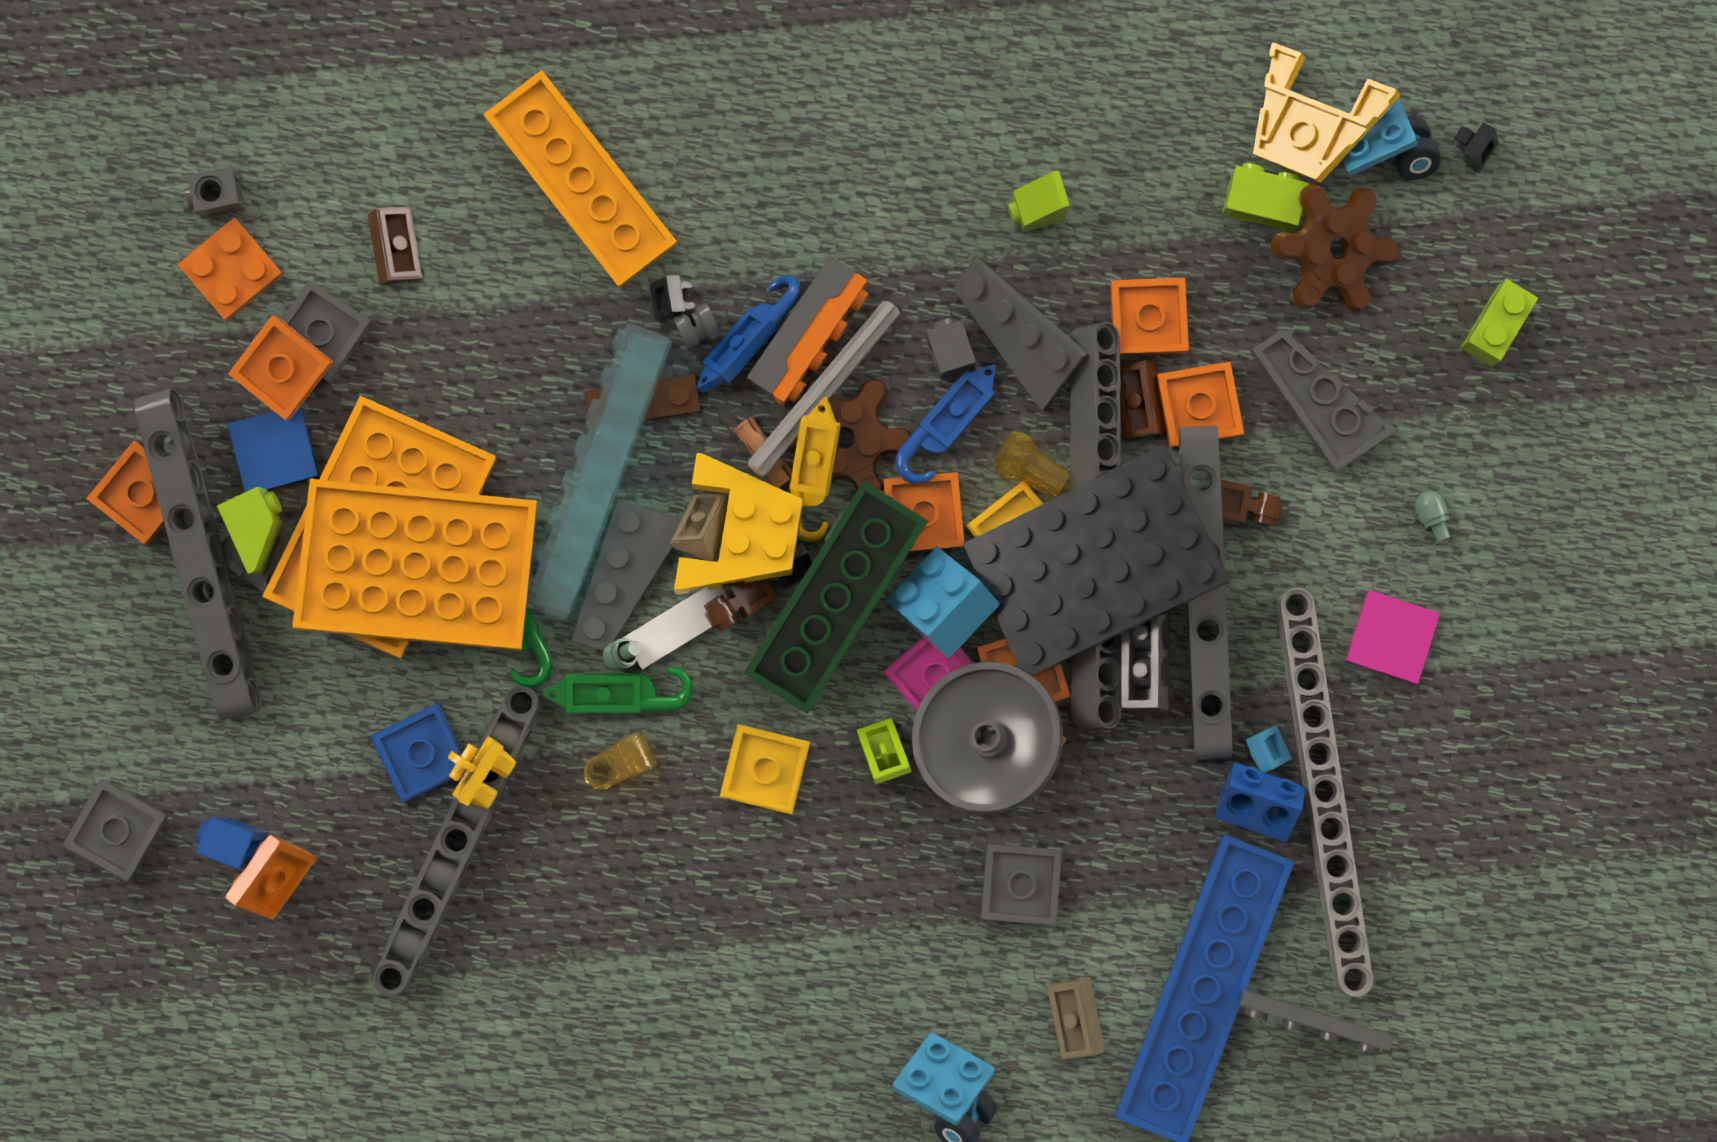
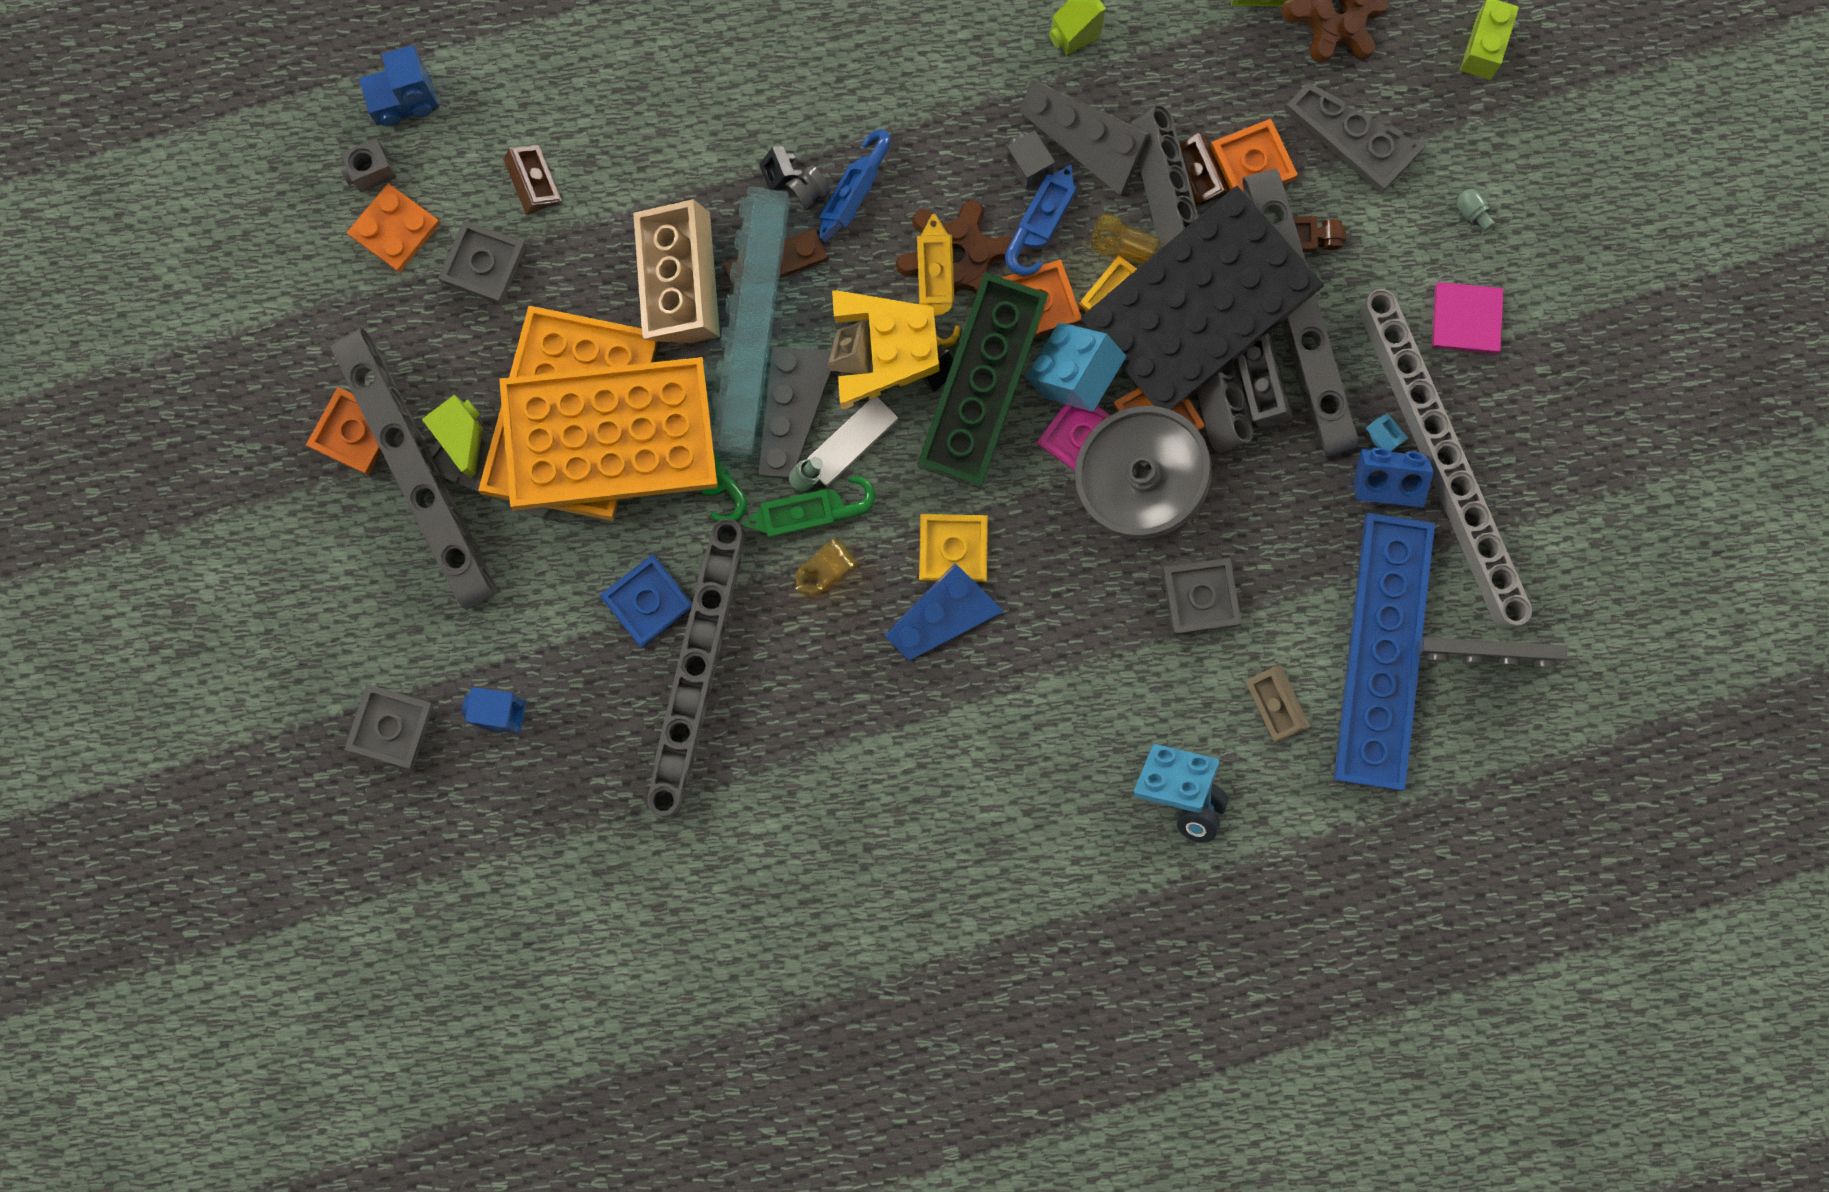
camera: 10 degrees left, 5 degrees down
(268, 114) = (400, 89): none -> blue brick
(270, 877) = (537, 734): orange plate -> none
(273, 450) = (462, 368): blue tile -> none
(280, 367) = (454, 295): orange plate -> none
(471, 787) = (710, 584): yellow hips -> none
(529, 395) = (676, 273): none -> tan slope
(580, 179) = (680, 89): light orange plate -> none
(735, 840) = (942, 613): none -> blue wing
(744, 597) = (901, 403): reddish brown plate -> none
(753, 438) = (889, 279): nougat pin -> none
(807, 332) = (904, 170): piece -> none
(824, 386) = (933, 205): light grey axle -> none
(883, 751) = (1055, 510): lime slope -> none
(1150, 315) = (1193, 96): orange plate -> none

